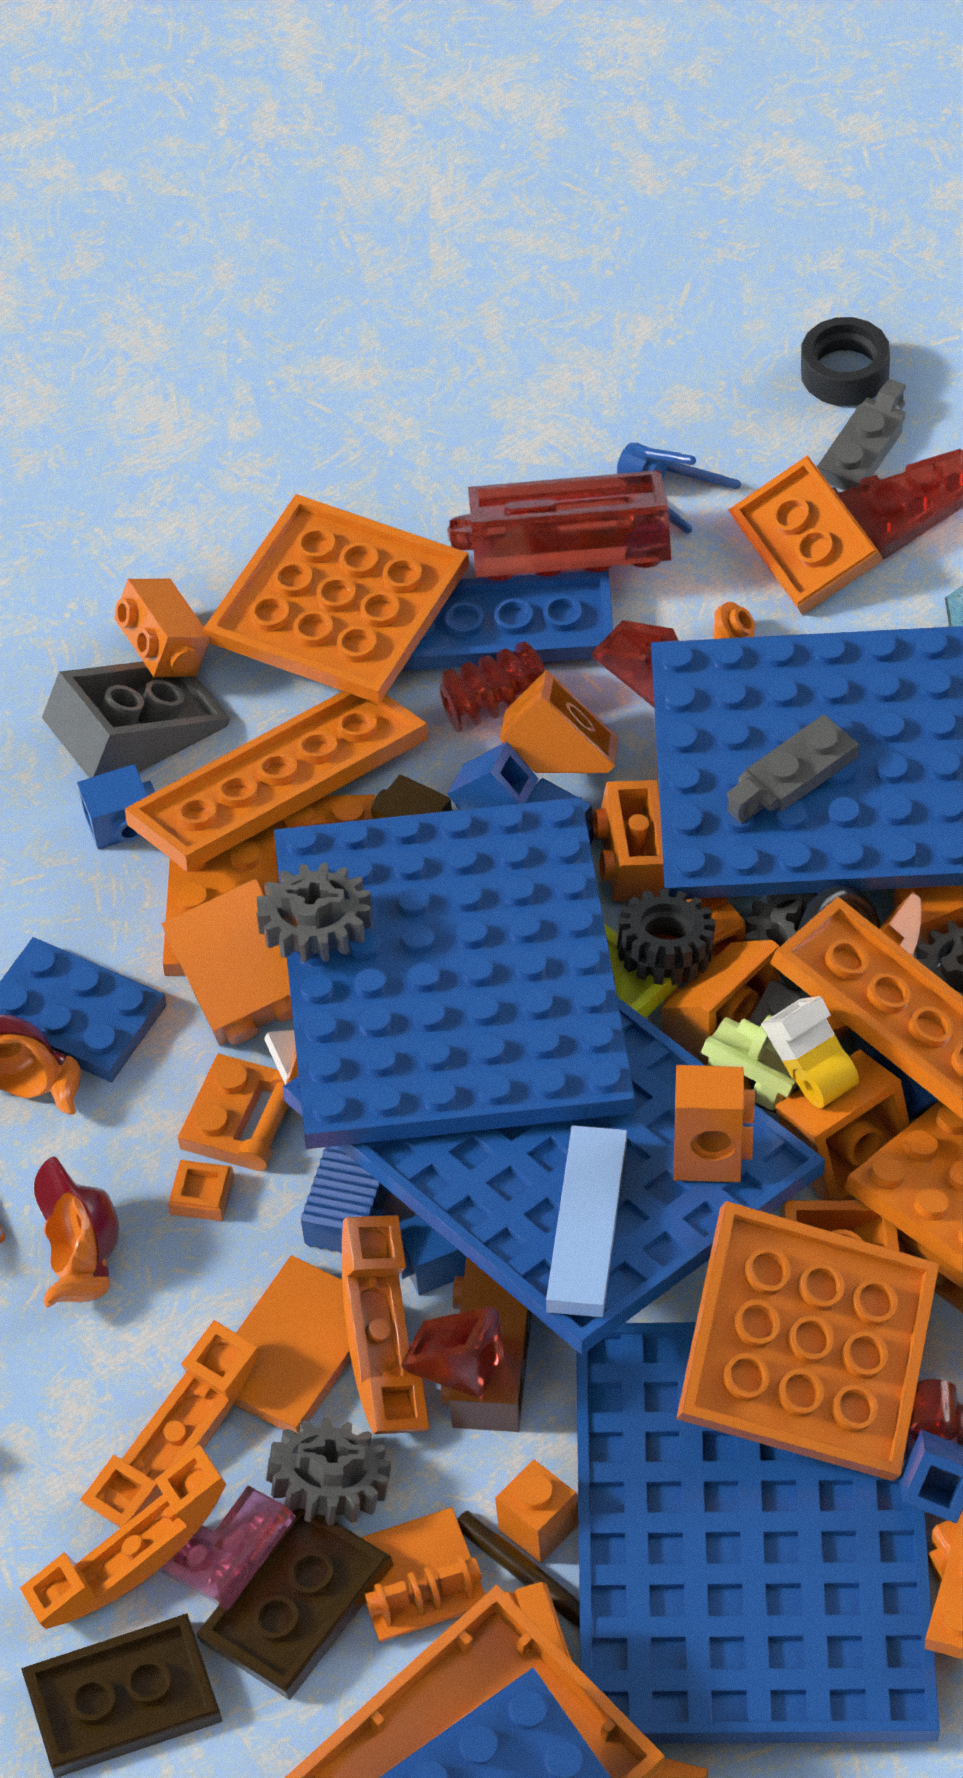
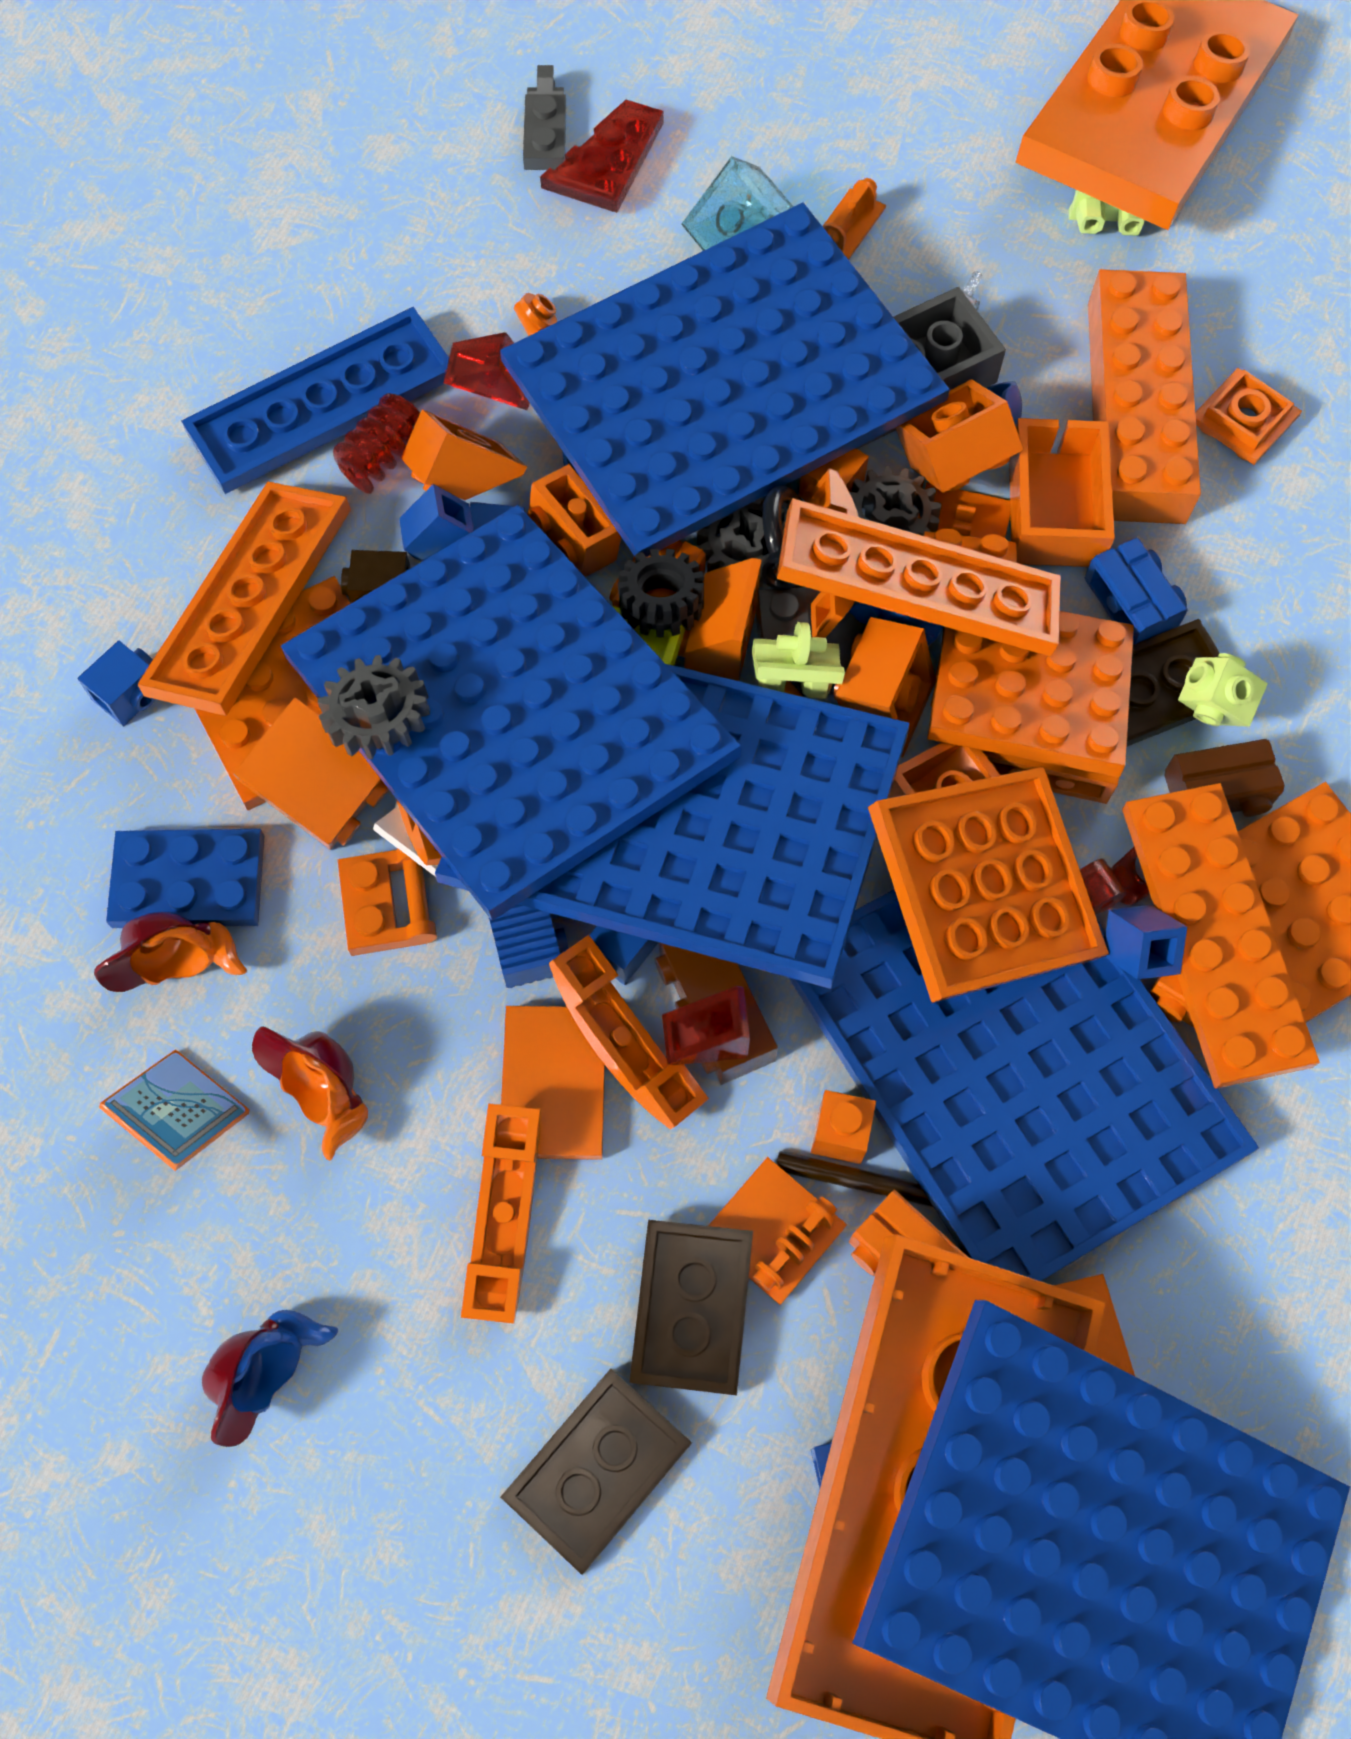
camera: 35 degrees left, 15 degrees up
(128, 717) = (84, 597): dark grey slope -> none
(133, 1552) = (533, 1343): orange slope -> none
(161, 627) = (68, 509): orange brick -> none
(201, 1190) = (393, 985): orange tile -> none
(225, 1560) = (624, 1307): clear pink plate -> none
(328, 1471) = (655, 1186): dark grey gear -> none
(337, 598) = (206, 422): orange plate -> none
(565, 525) = (361, 281): clear red piece -> none
(586, 1221) = (769, 872): light blue tile -> none
(642, 458) = (388, 210): blue plant -> none
(710, 1123) = (824, 739): orange brick -> none
(792, 769) = (684, 407): dark grey hinge -> none
(805, 535) = (549, 215): orange tile -> none
(811, 1051) = (851, 636): leg -> none
(845, 335) = (487, 42): black tyre -> none

